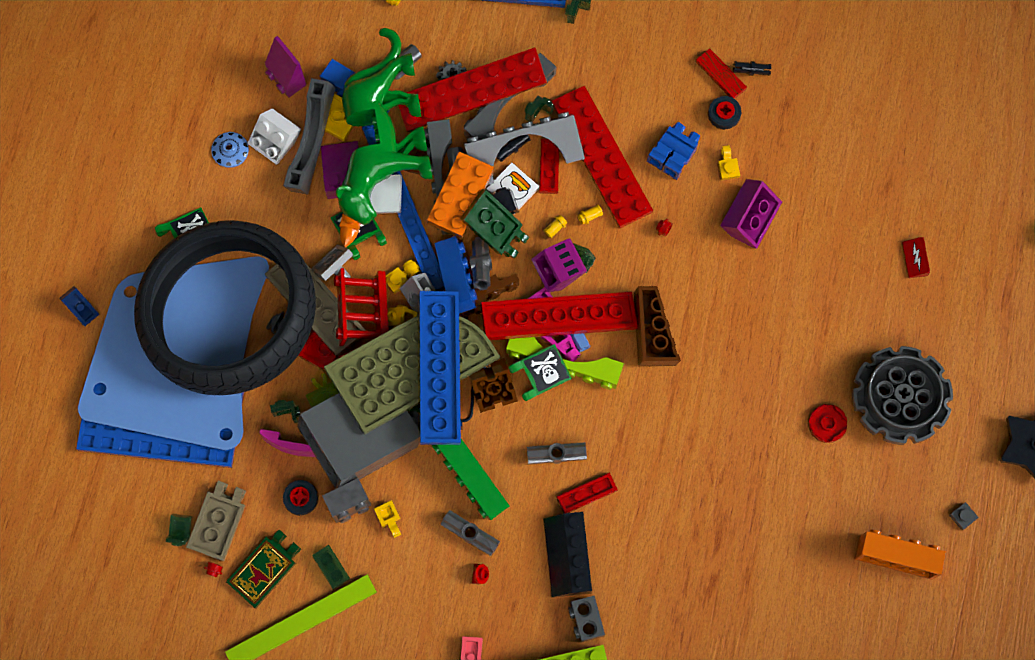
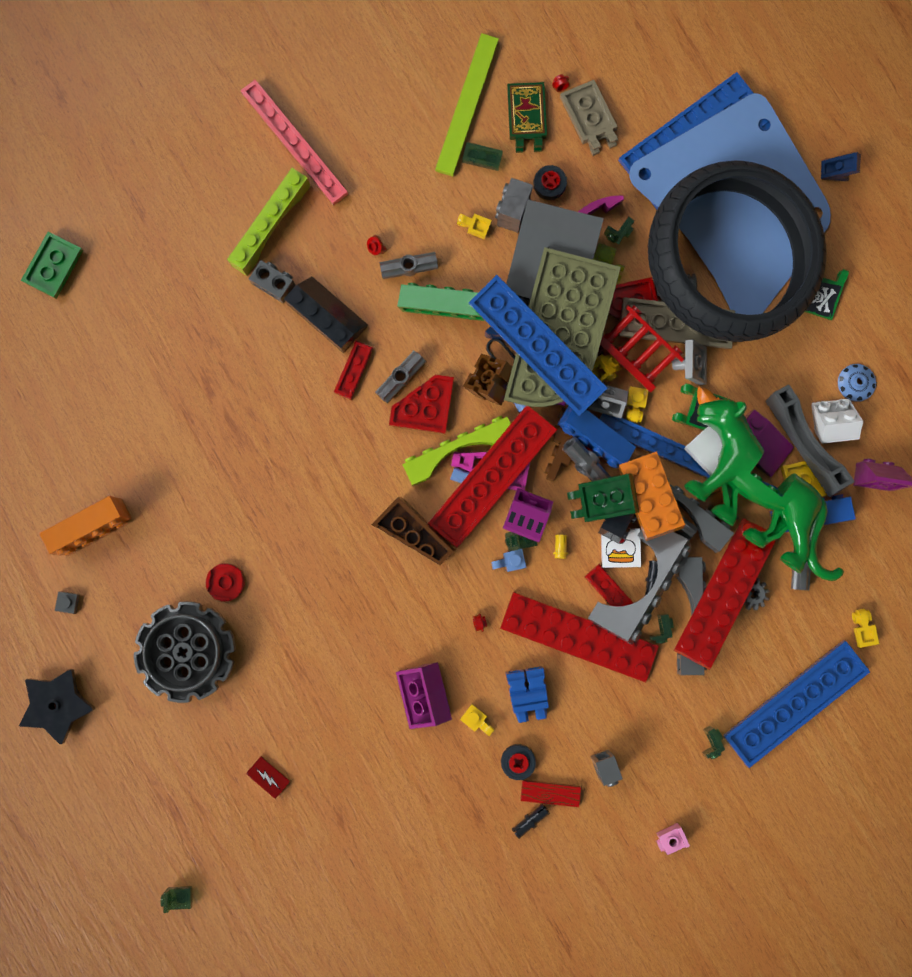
camera: 135 degrees right, 10 degrees up
(179, 529) = (609, 84): clear green bracket -> none
(544, 371) = (465, 426): flag -> none
(558, 415) = (425, 406): none -> red plate
(590, 214) = (543, 581): yellow pin -> none
(600, 249) = (512, 561): none -> medium blue plate
(667, 53) = (606, 768): none -> dark grey brick

